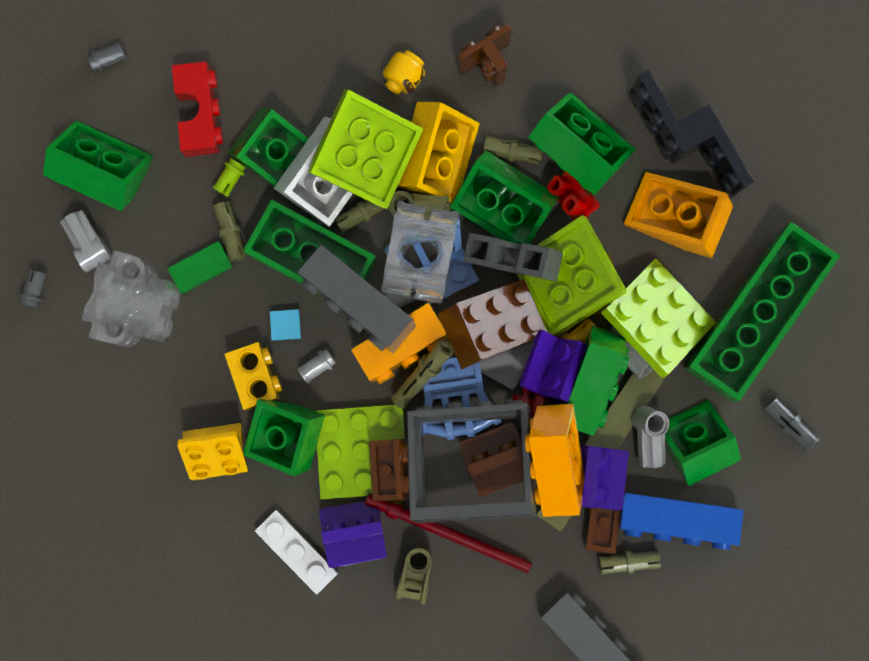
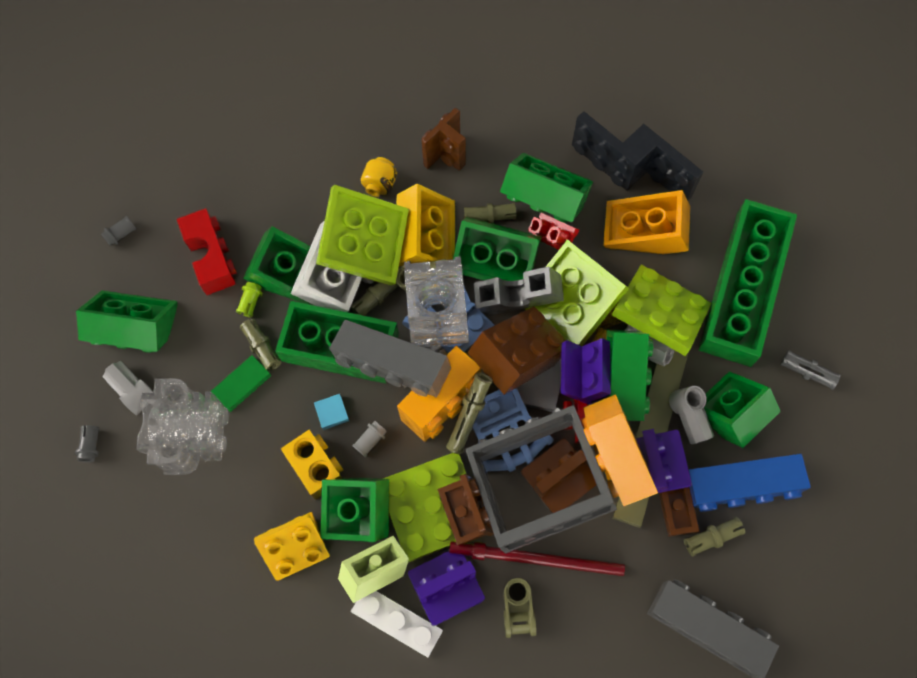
camera: 15 degrees left, 15 degrees down
(286, 499) = (373, 569): none -> yellowish green brick

